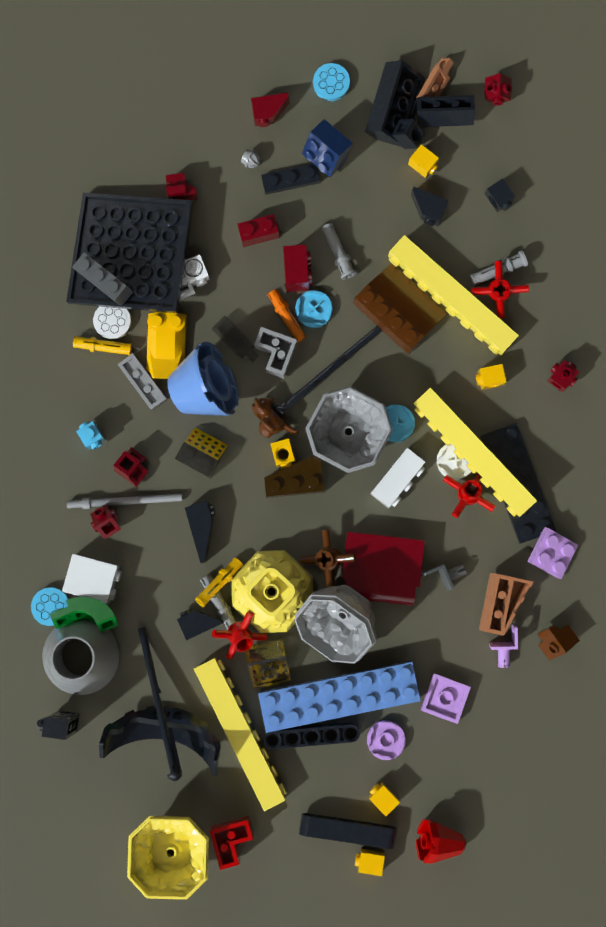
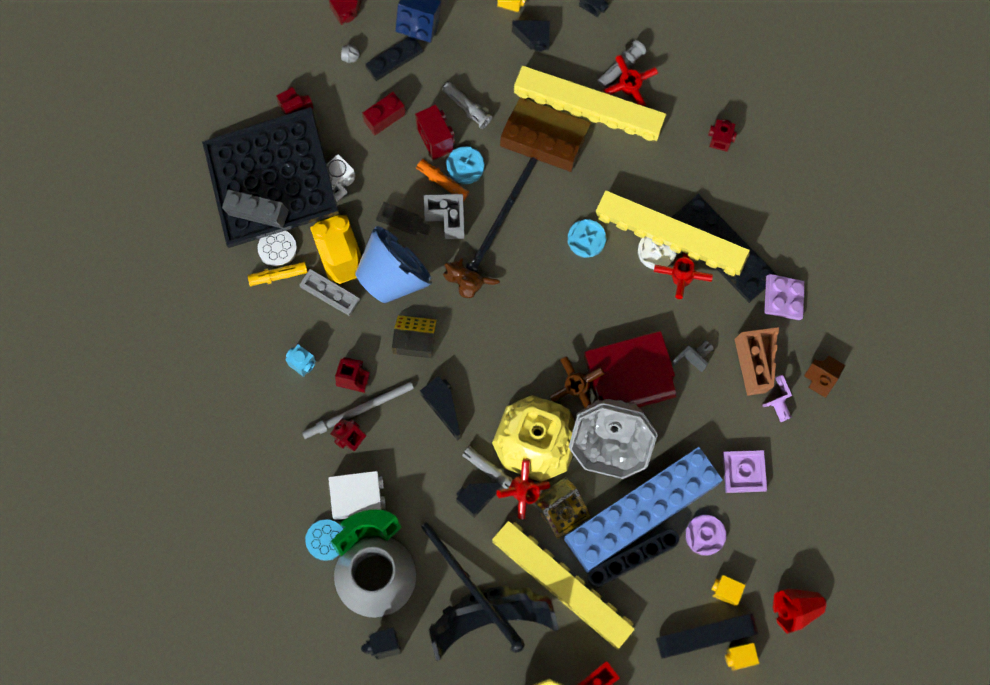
camera: 30 degrees left, 10 degrees down
(204, 597) = (474, 465): yellow pin -> none
(282, 445) = (489, 298): yellow brick -> none
(296, 479) = (516, 324): dark brown wedge -> none
(354, 411) = (551, 240): light grey rock -> none
(398, 478) = (611, 286): white brick -> none
(491, 377) = (657, 161): yellow brick -> none

